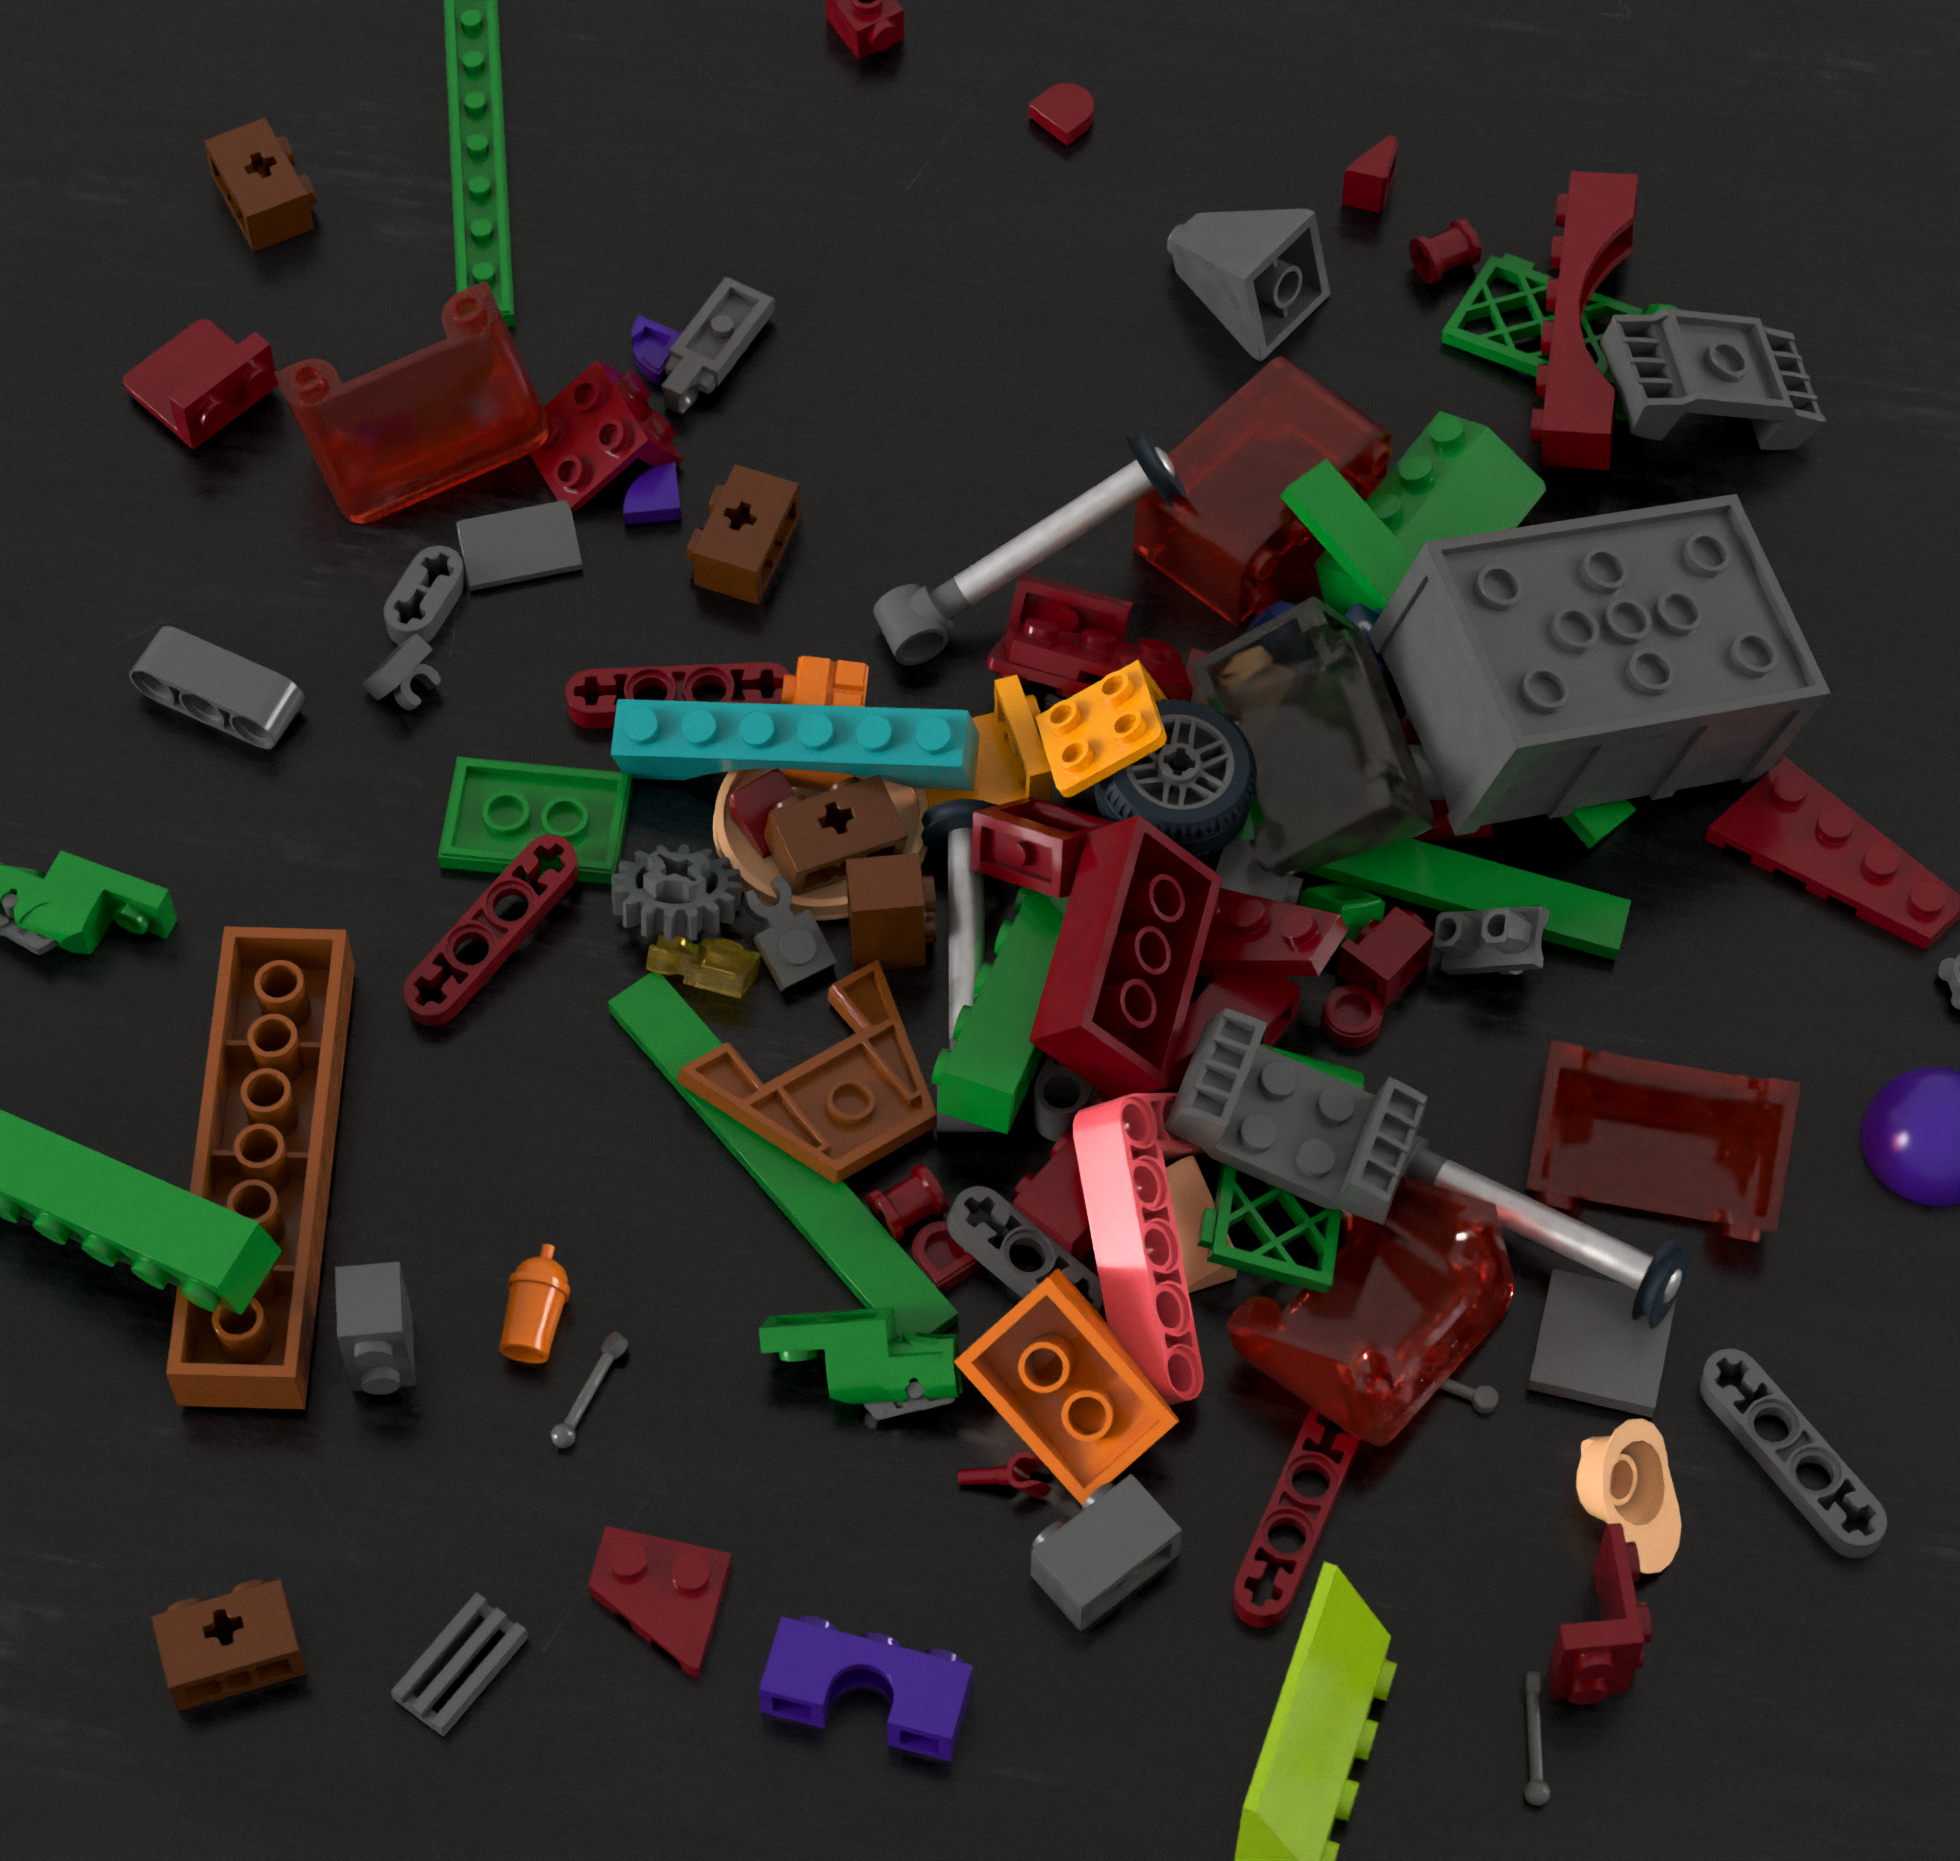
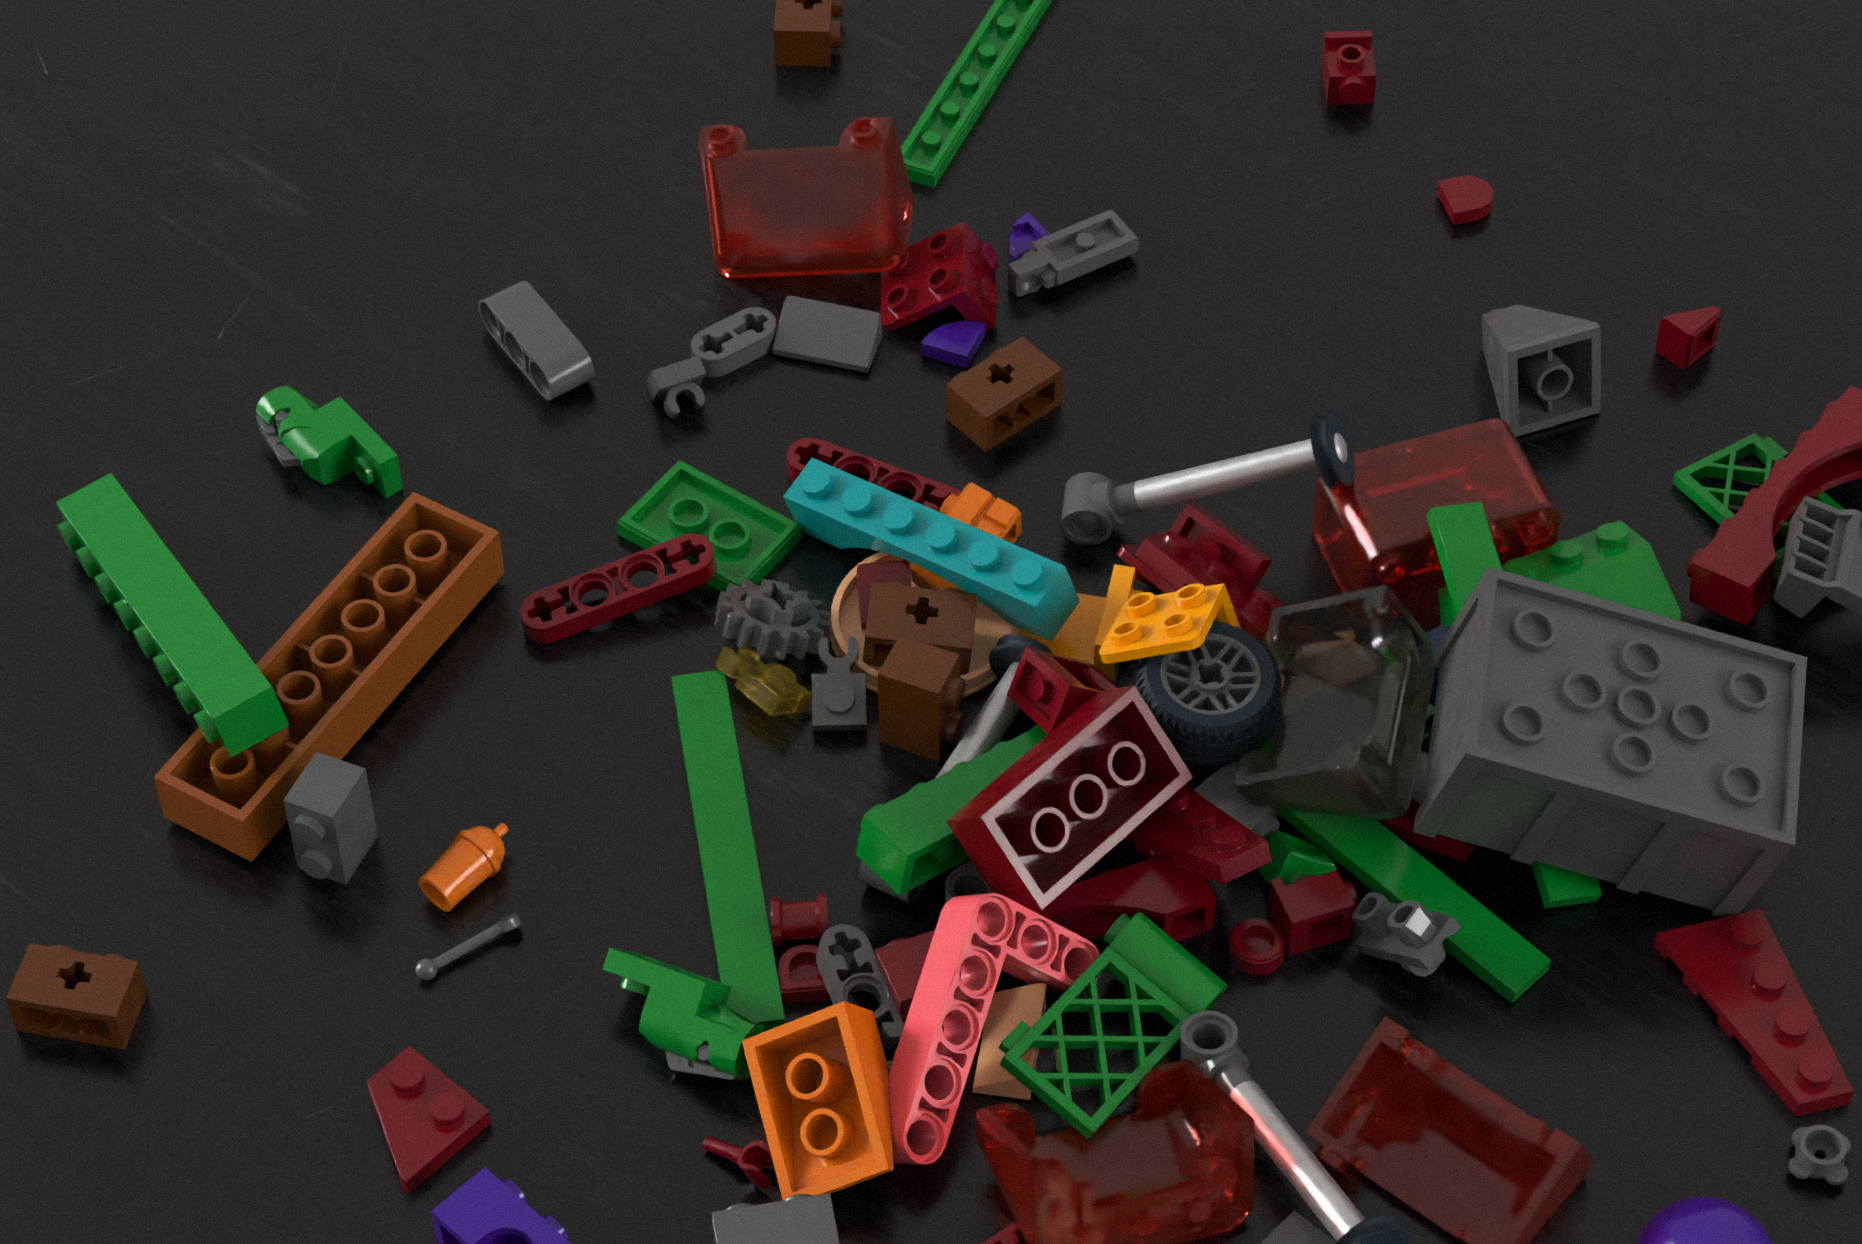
camera: 30 degrees right, 10 degrees down
(202, 380) = (666, 131): dark red bracket -> none
(441, 1648) = (231, 1087): dark grey tile -> none
(842, 1103) = (794, 825): dark orange wing -> none
(1294, 1121) = (1133, 985): dark grey plate -> none
(1445, 250) = (1715, 413): dark red bush -> none

